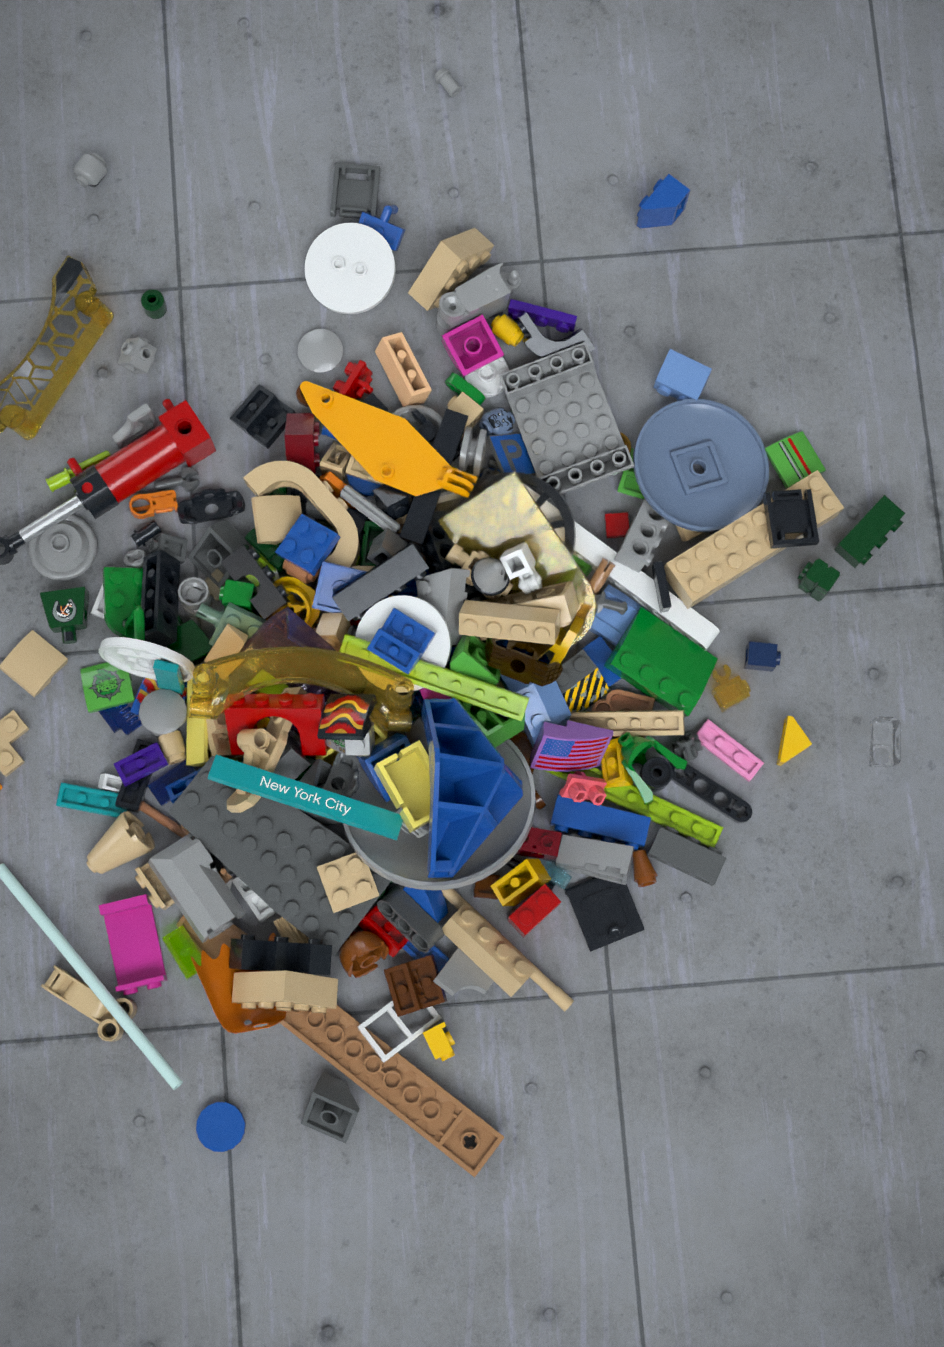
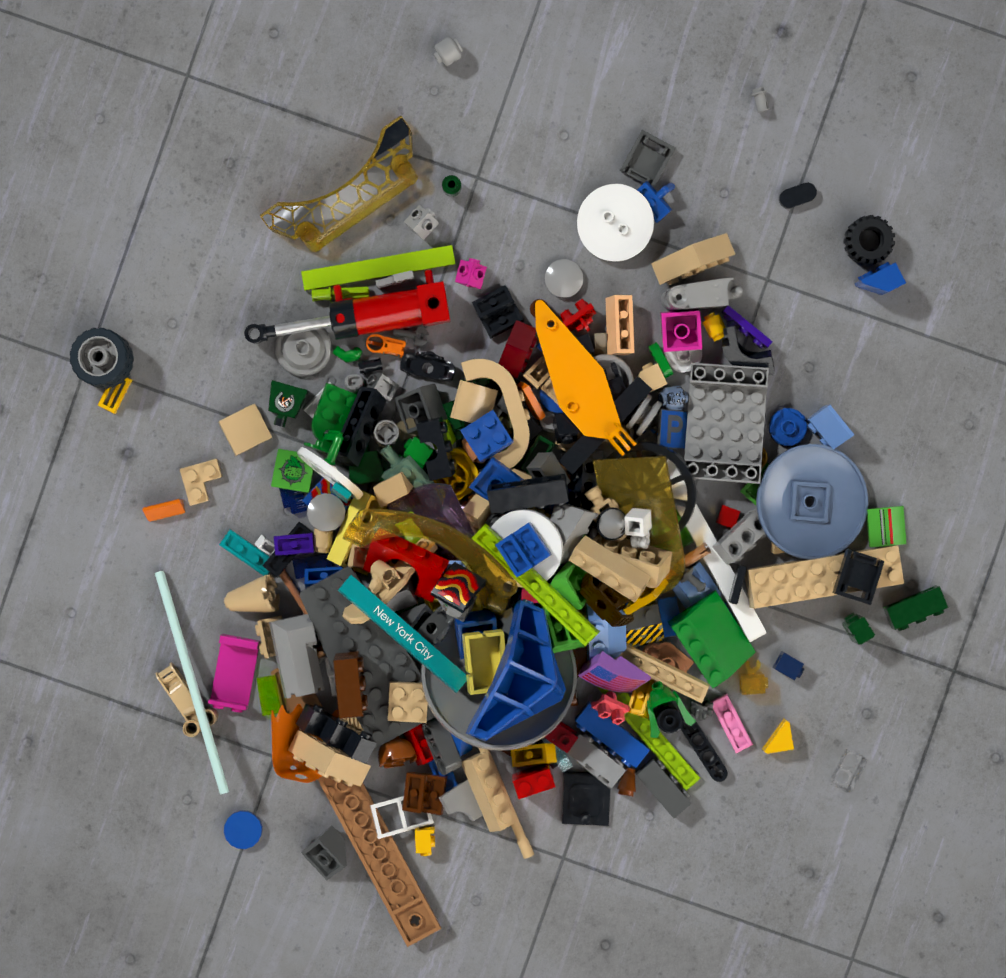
camera: 20 degrees right, 10 degrees up
(103, 429) = (378, 267): none -> lime tile
(117, 534) = (348, 356): none -> green arm
(215, 386) = (470, 273): none -> dark pink brick
(270, 886) = (350, 684): none -> reddish brown piece
(369, 509) = (545, 428): light grey axle -> none
(390, 399) = (600, 343): none -> dark tan piece
(533, 161) = (797, 195): none -> black tile
(630, 154) = (885, 236): none -> black tyre
(636, 402) = (787, 427): none -> blue tile

